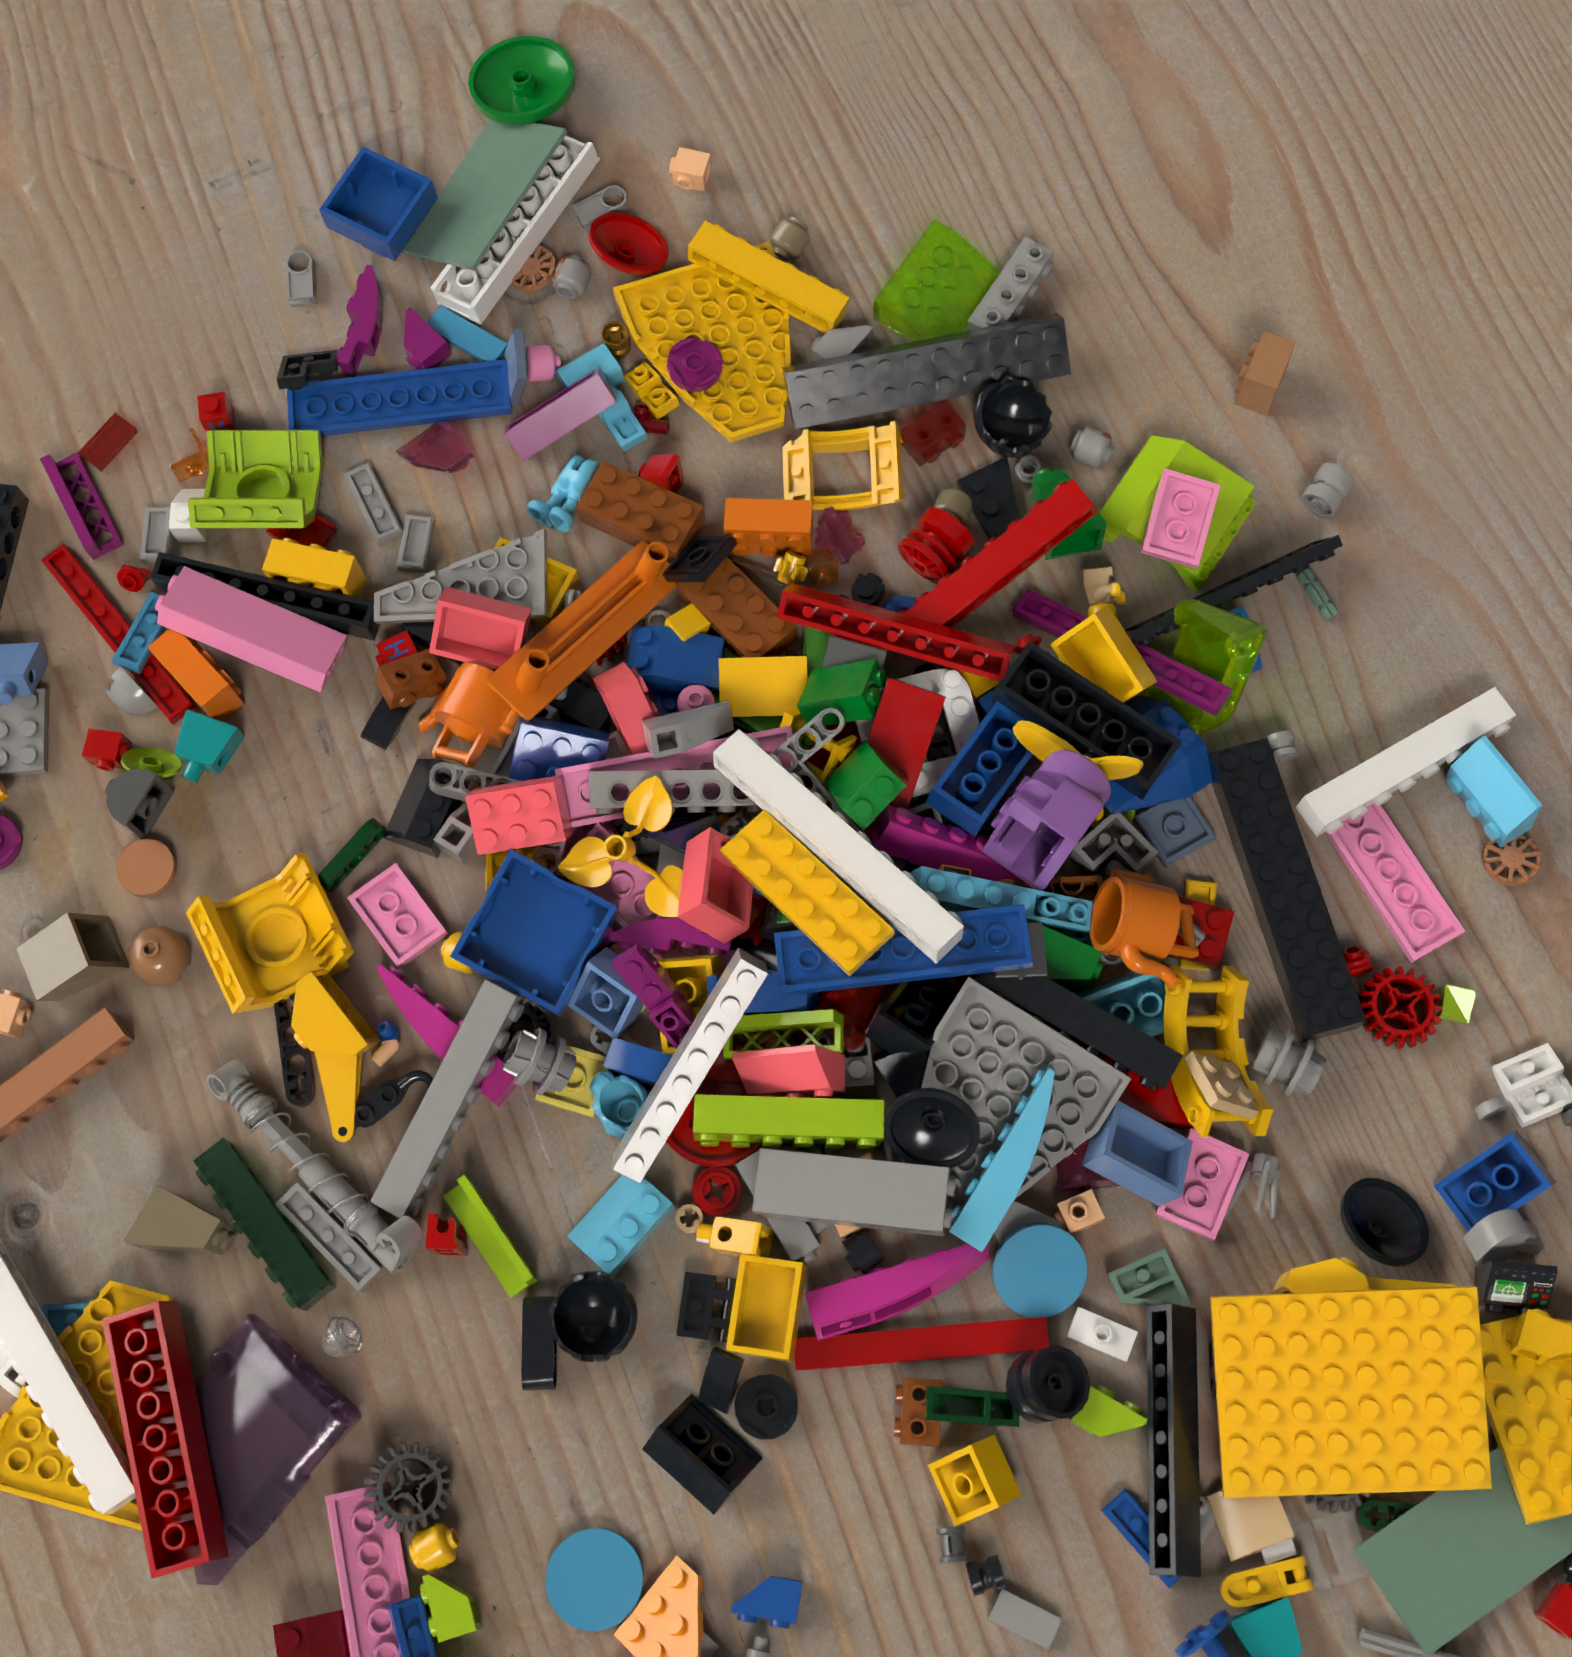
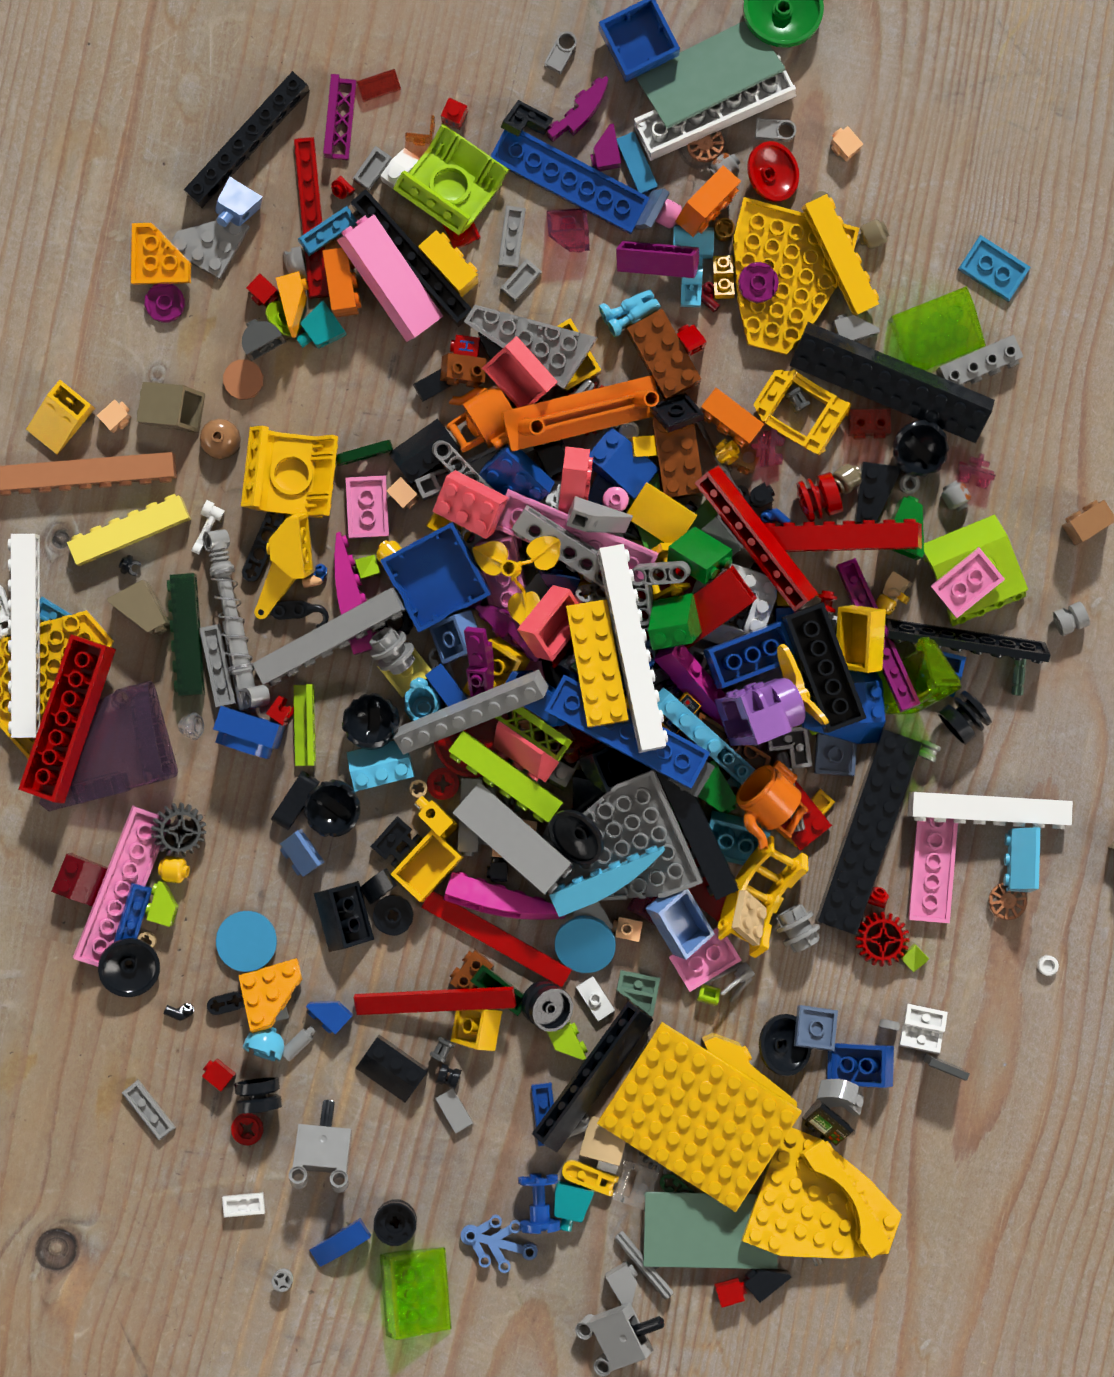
camera: 25 degrees right, 15 degrees up
(107, 1143) = (129, 530): none -> light yellow brick
(130, 1187) = (126, 565): none -> black plate
(149, 731) = (293, 299): none -> light orange slope
(204, 1052) = (212, 513): none -> white brick
(418, 1290) = (247, 732): none -> blue container
(431, 869) = (403, 494): none -> light nougat brick
(444, 987) = (367, 567): none -> lime slope
(571, 1170) = (370, 721): none -> black piece
(575, 314) = (708, 202): none -> orange brick
(592, 1406) = (301, 853): none -> medium blue slope
(832, 463) = (797, 400): none -> dark grey bush
(897, 1481) = (435, 1000): none -> red tile
(903, 1619) = (392, 1068): none -> black slope
(951, 192) = (994, 268): none -> dark azure tile
(1107, 405) = (984, 475): none -> clear pink hips
(1241, 1229) = (708, 994): none -> lime slope
(1294, 676) = (964, 717): none -> black wheel
(1405, 1175) = (815, 1028): none -> sand blue tile

